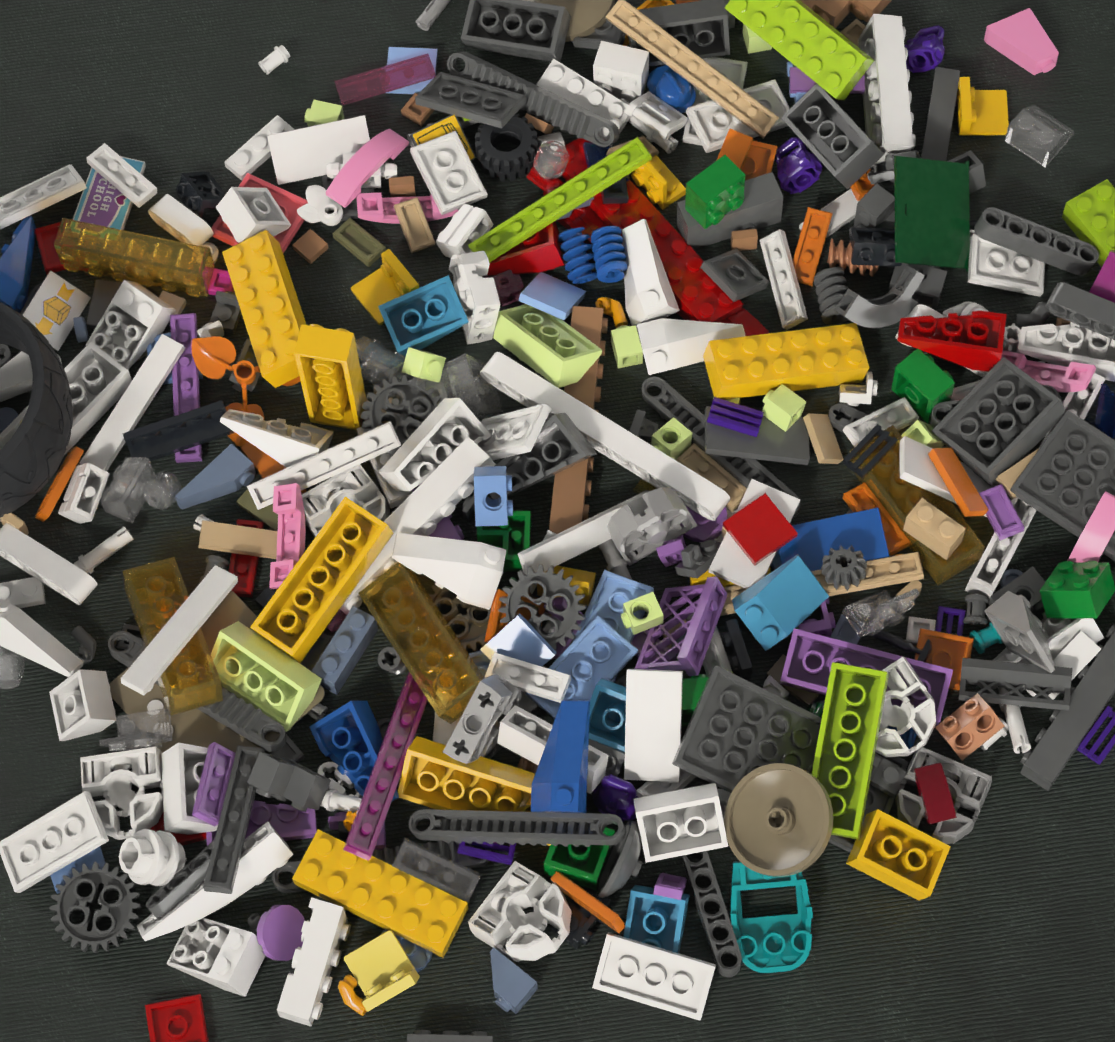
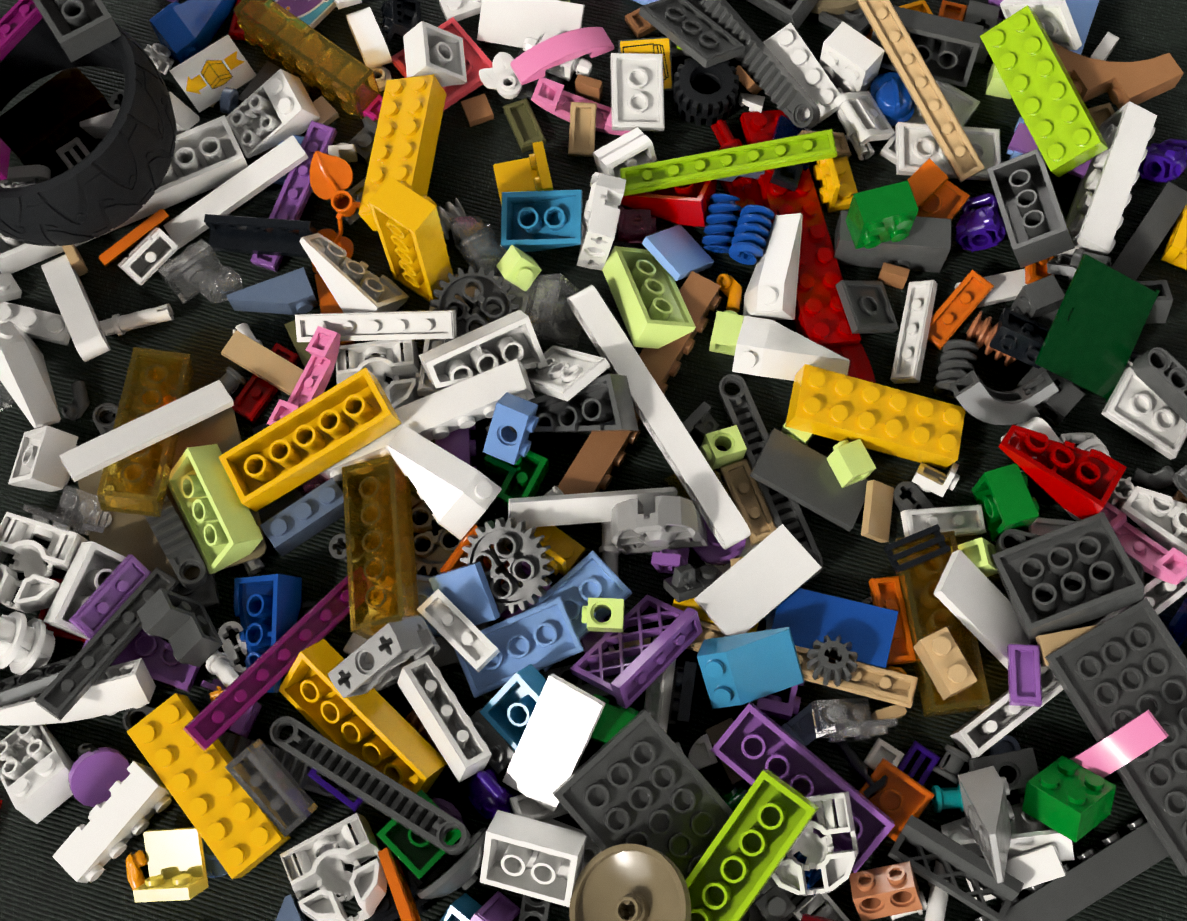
camera: 25 degrees right, 5 degrees up
(551, 159) = (739, 118): clear head -> none
(563, 768) = (436, 749): blue wedge -> none
(735, 414) = (800, 448): dark purple tile -> none
(760, 529) = (765, 580): red tile -> none
(958, 482) = (993, 623): orange tile -> none

